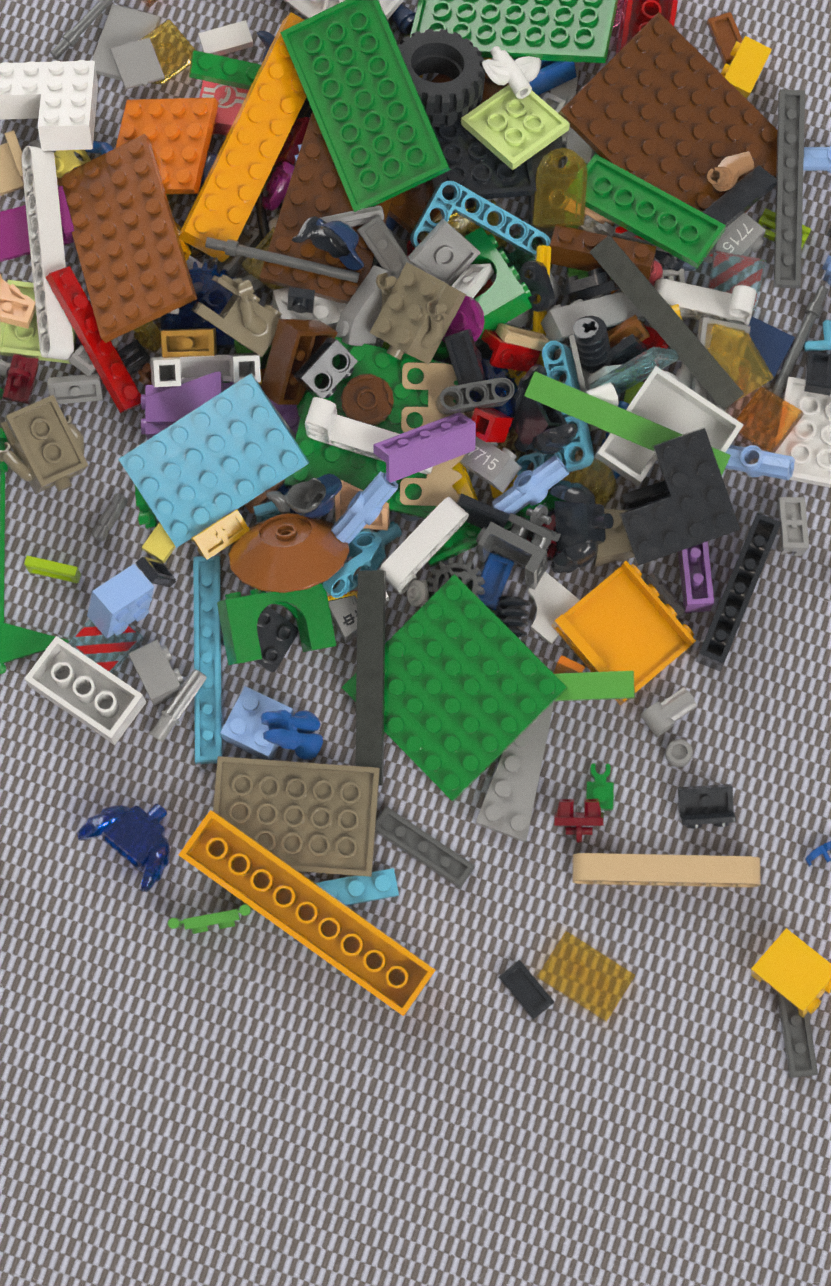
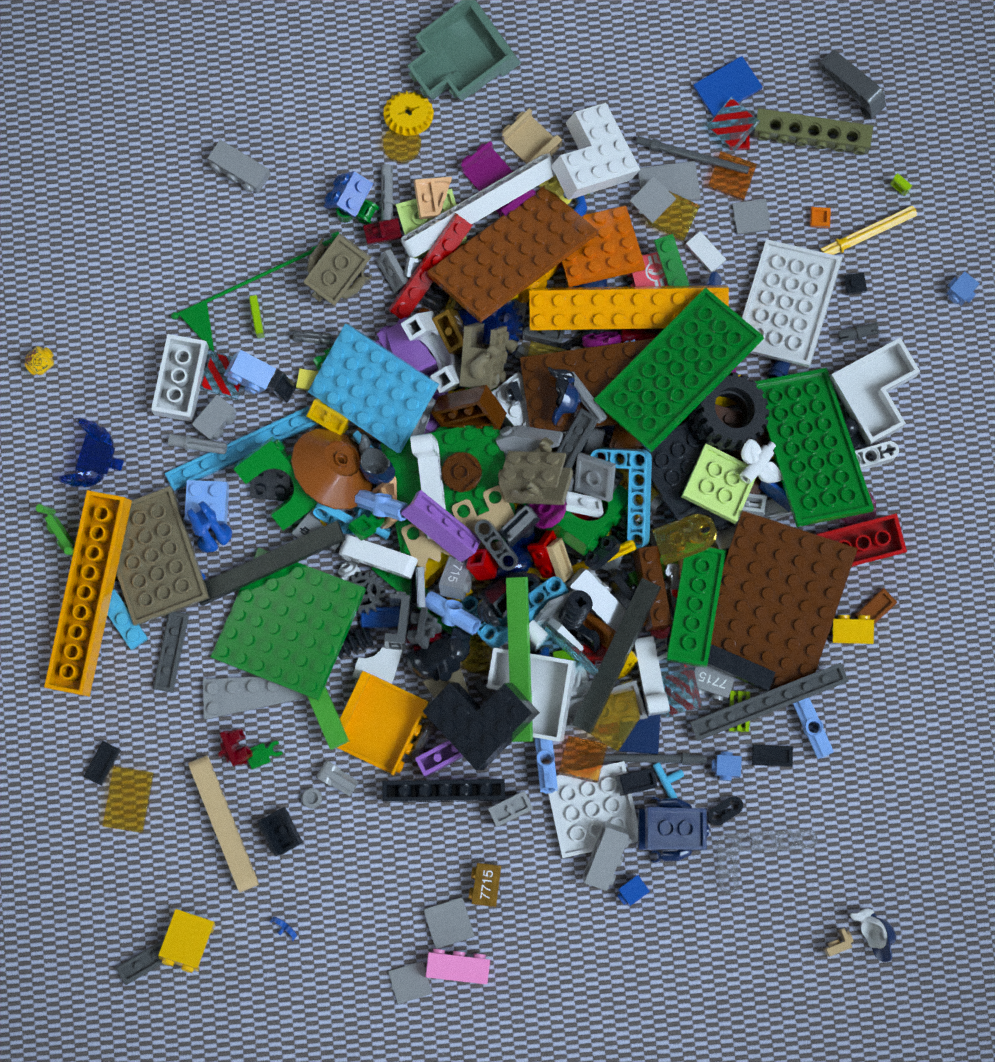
camera: 65 degrees right, 5 degrees up
(233, 248) = (530, 330): dark grey bar -> none
(321, 363) = (467, 427): brick -> none
(379, 541) = (364, 526): none -> green plate
(567, 665) = (337, 696): orange tile -> none
(729, 170) = (757, 652): medium nougat arm -> none

